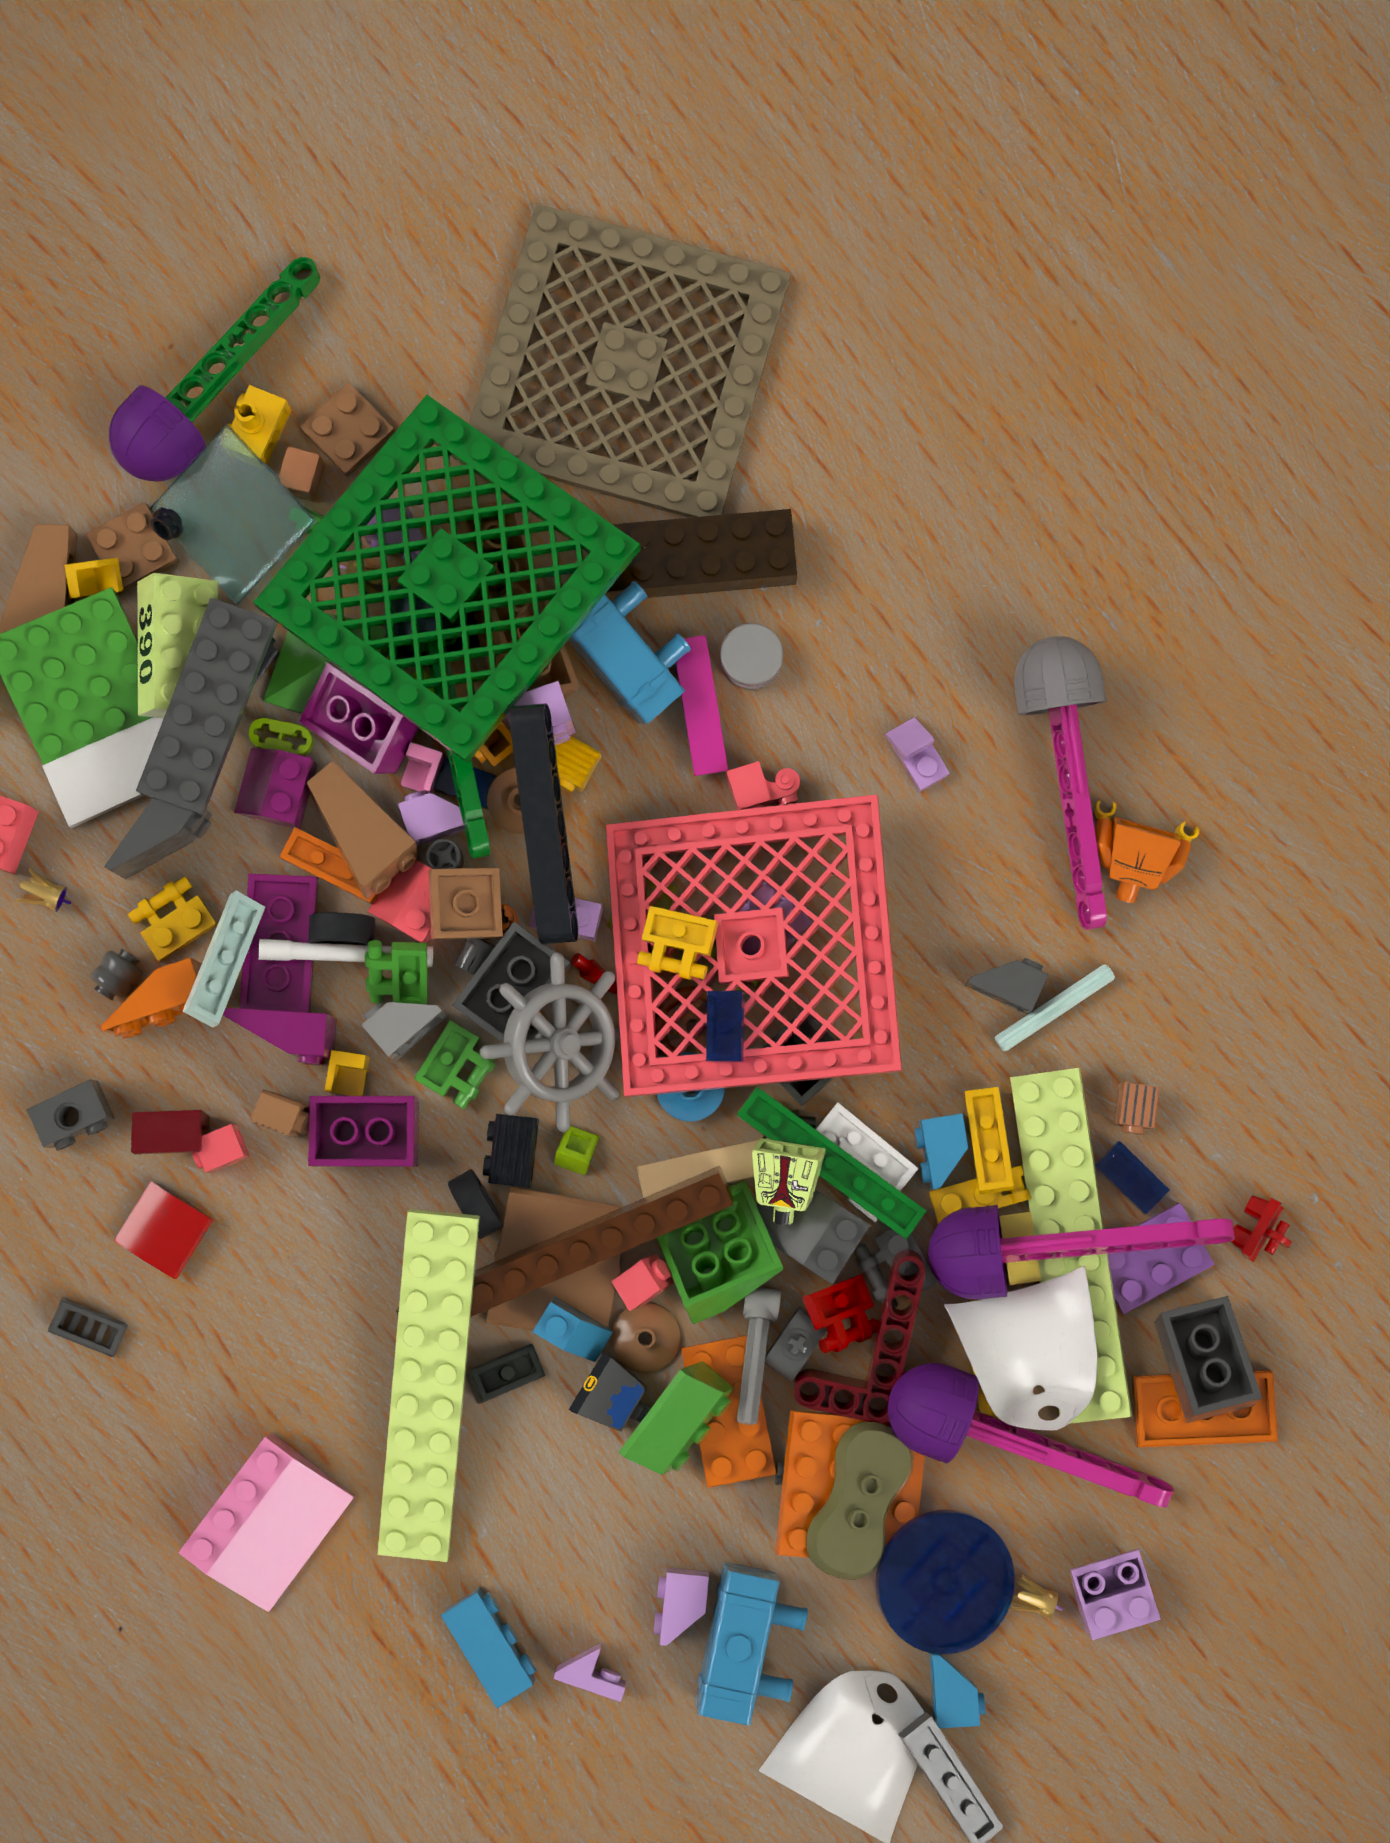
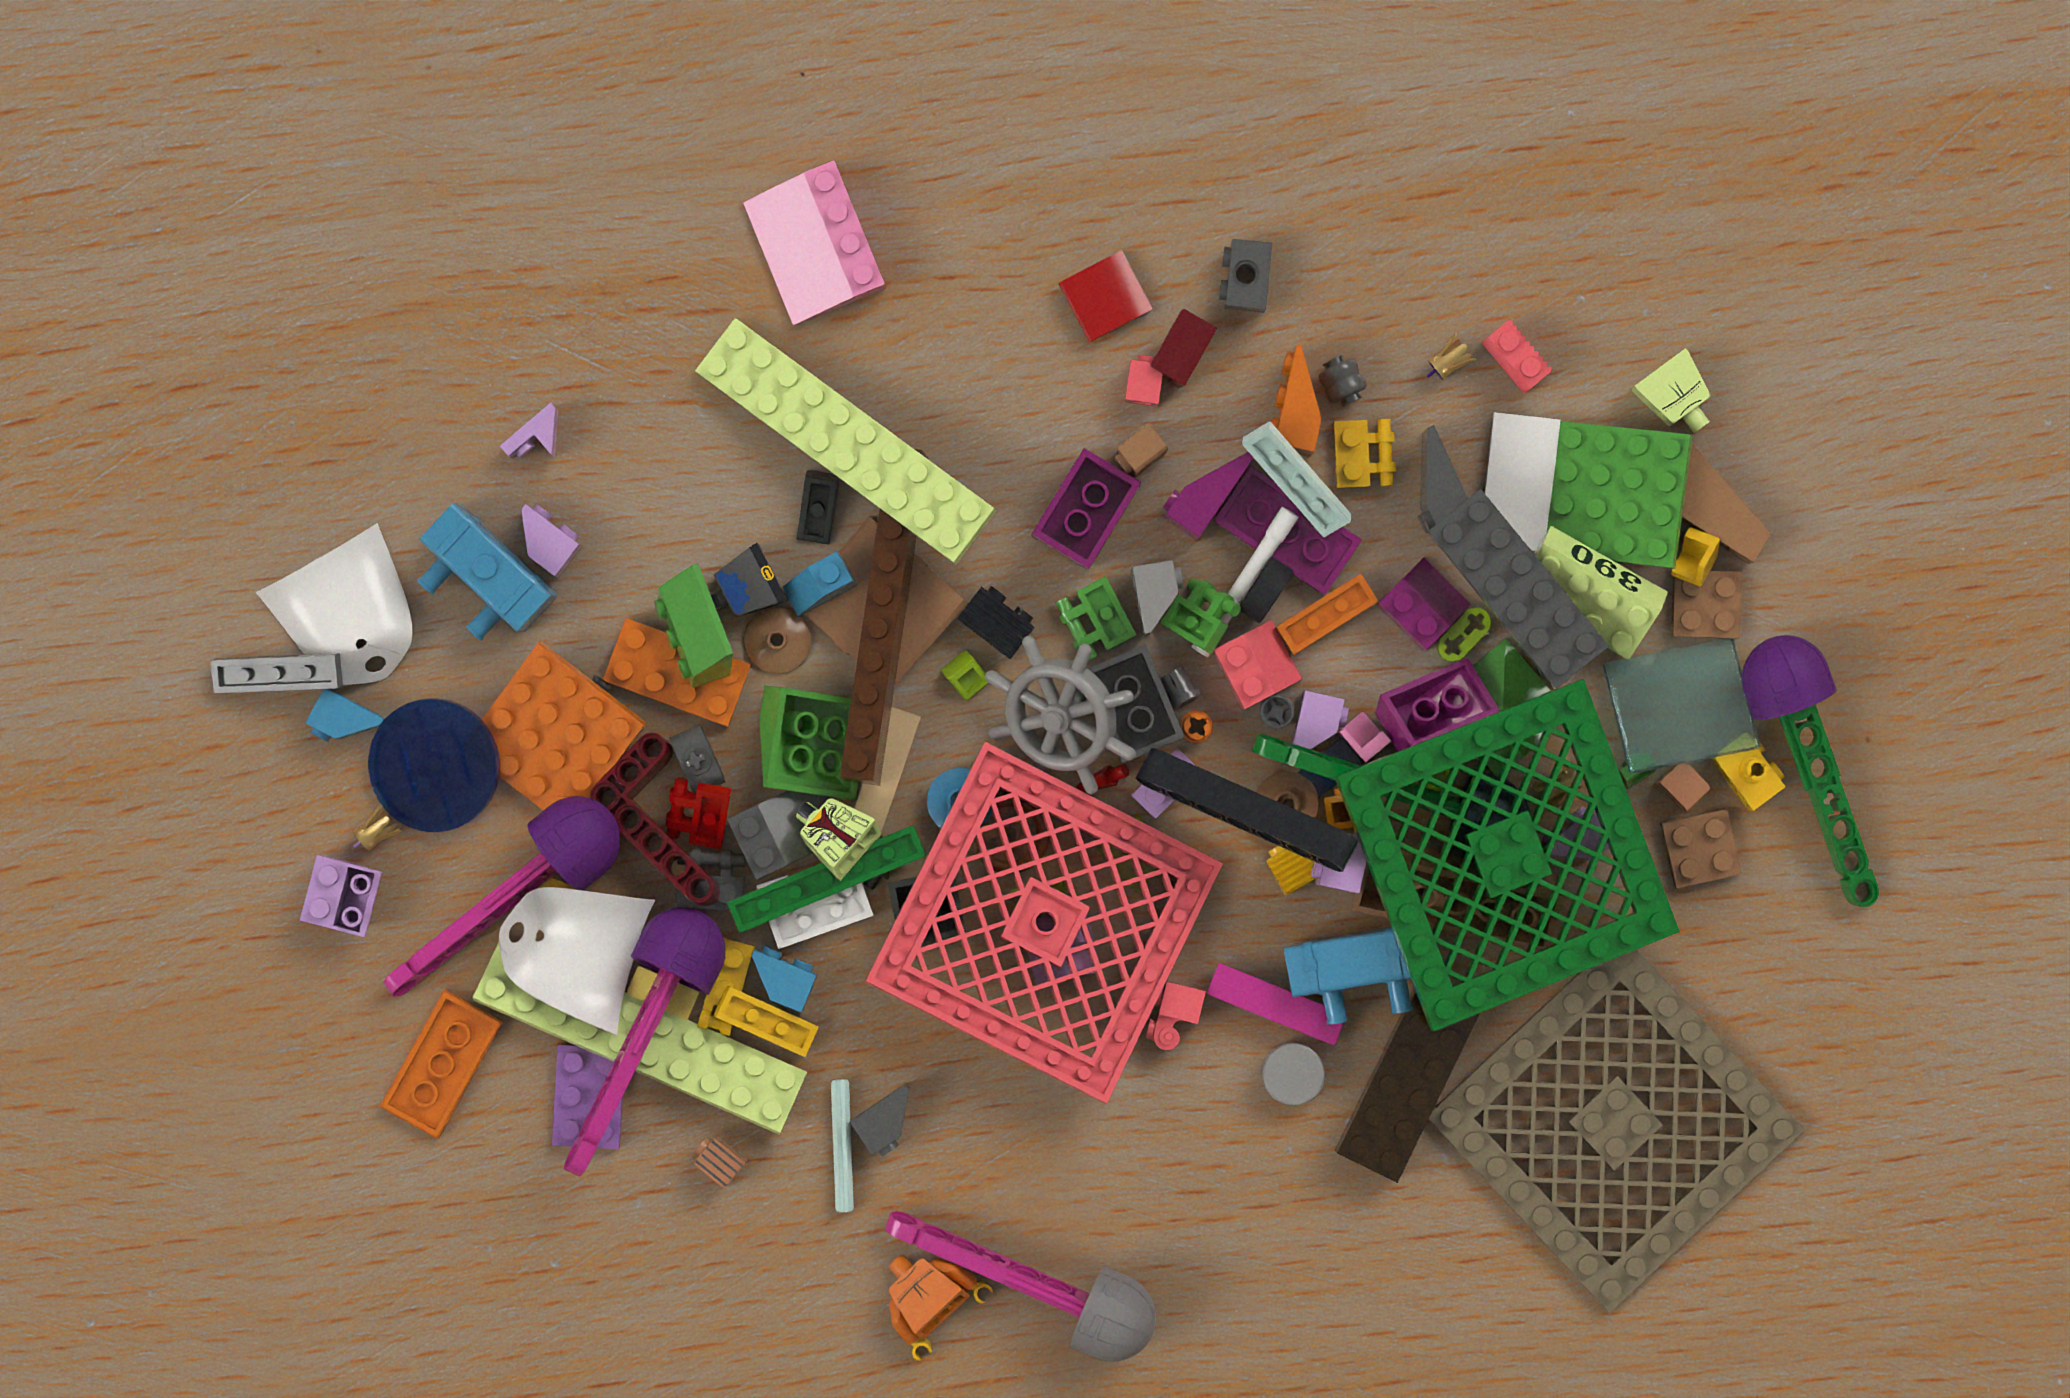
camera: 115 degrees right, 5 degrees up
(69, 1334) = (1085, 168): dark grey slope -> none
(167, 523) = (1705, 646): black plate -> none
(347, 1073) = (1143, 523): yellow panel -> none
(364, 833) = (1339, 655): medium nougat slope -> none
(465, 903) = (1223, 705): medium nougat plate -> none
(474, 1200) = (972, 566): black tyre -> none
(489, 1646) = (607, 365): dark azure brick -> none
(643, 1282) = (823, 665): coral brick -> none
(681, 932) = (1092, 869): yellow plate -> none
(725, 1026) = (989, 858): clear blue plate -> none
(761, 1310) = (742, 747): light grey axle -> none
(850, 1528) = (524, 715): olive plate -> none
(916, 752) = (1125, 1163): lavender slope -> none
(1131, 1177) = (663, 1121): clear blue plate -> none
(1207, 1359) = (480, 1088): dark grey brick -> none
(1267, 1215) = (550, 1188): red hips -> none

